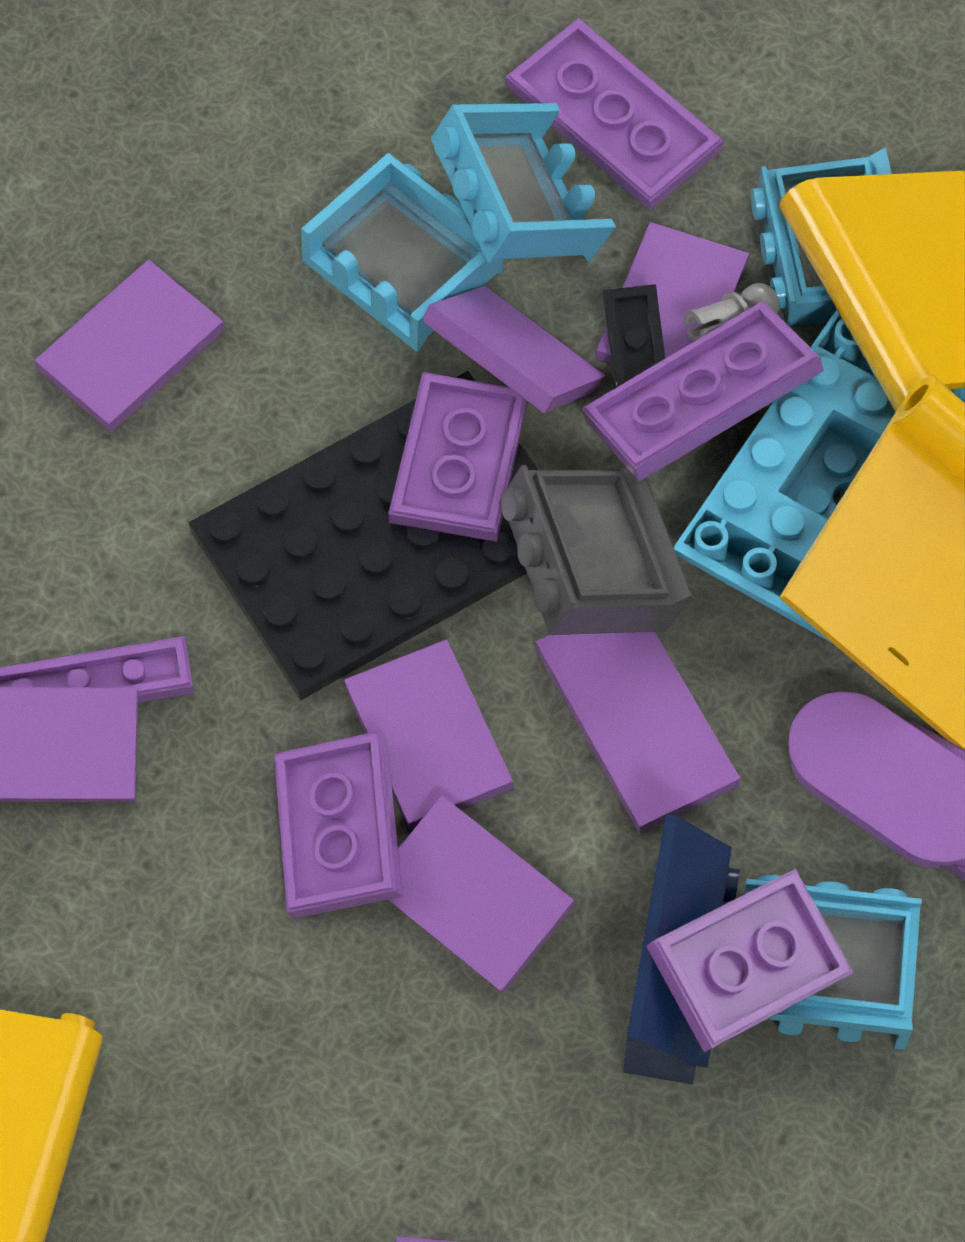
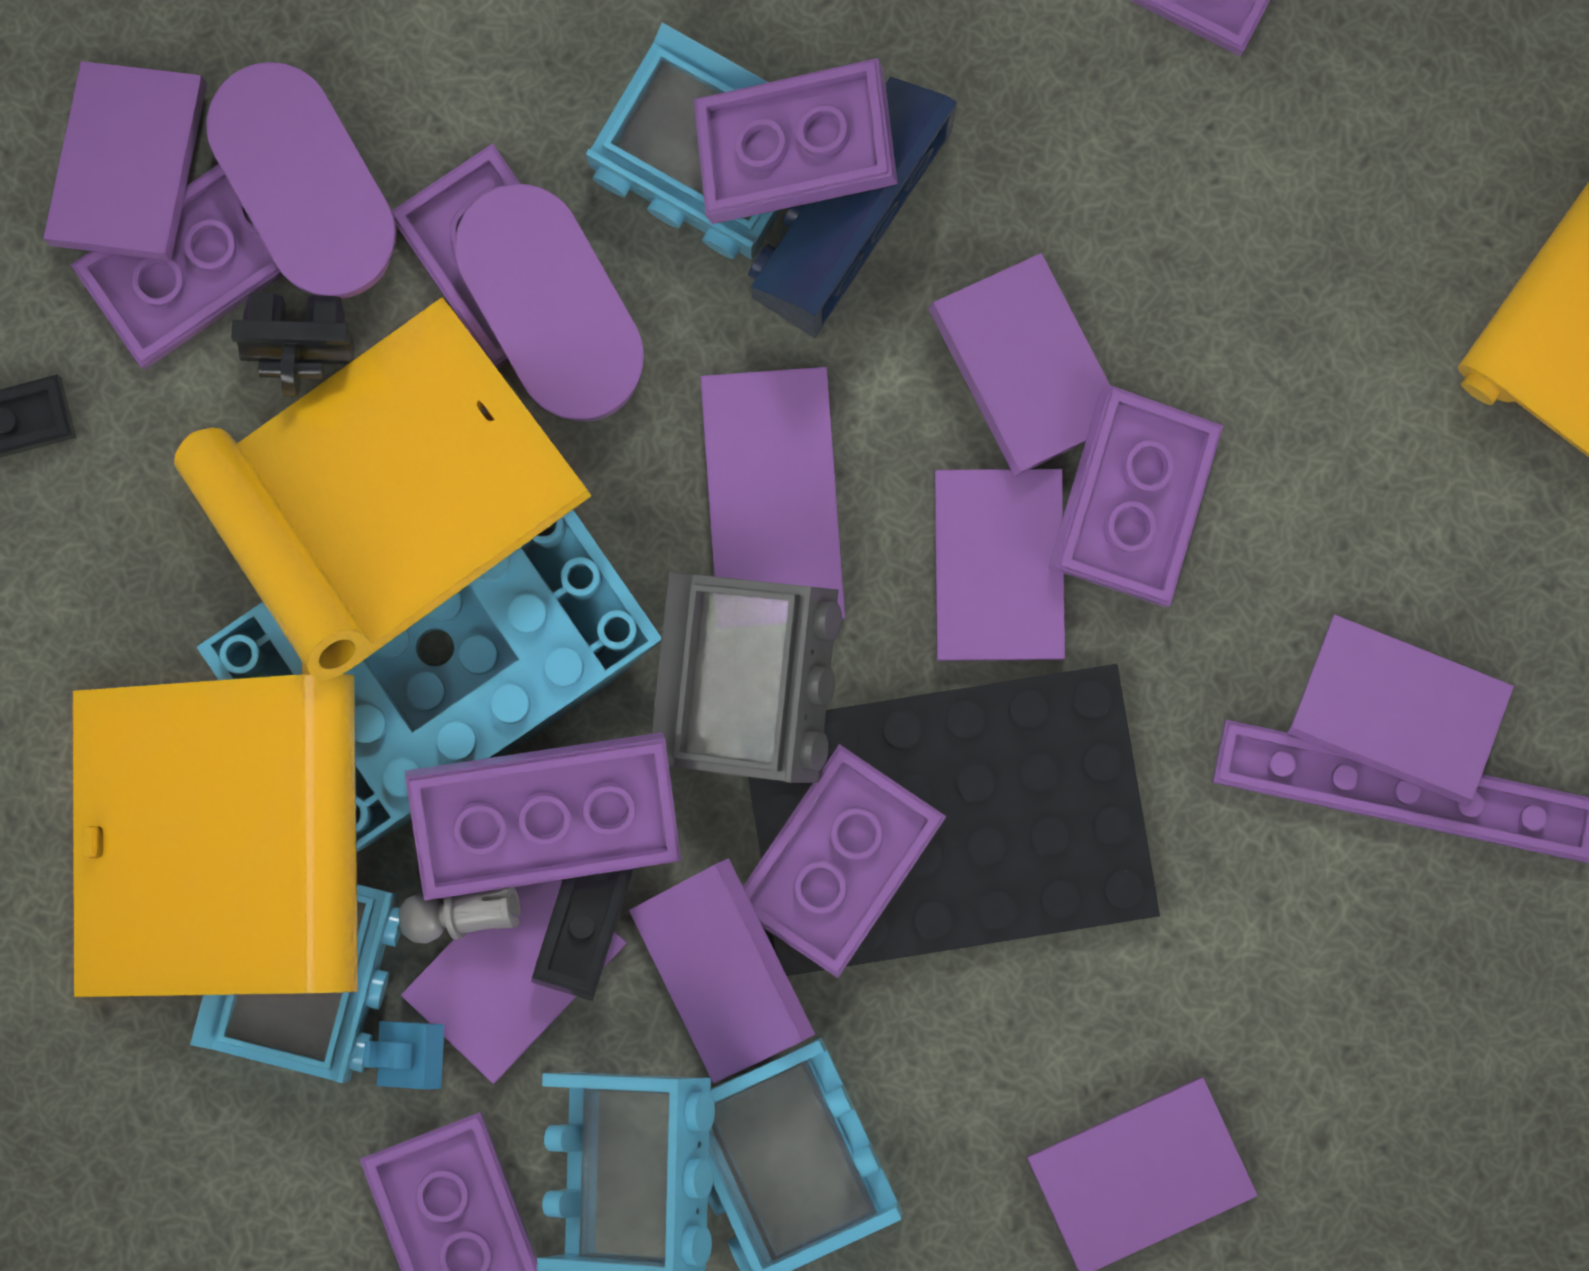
camera: 155 degrees left, 20 degrees up
(724, 214) = (407, 1055): none -> dark azure tile

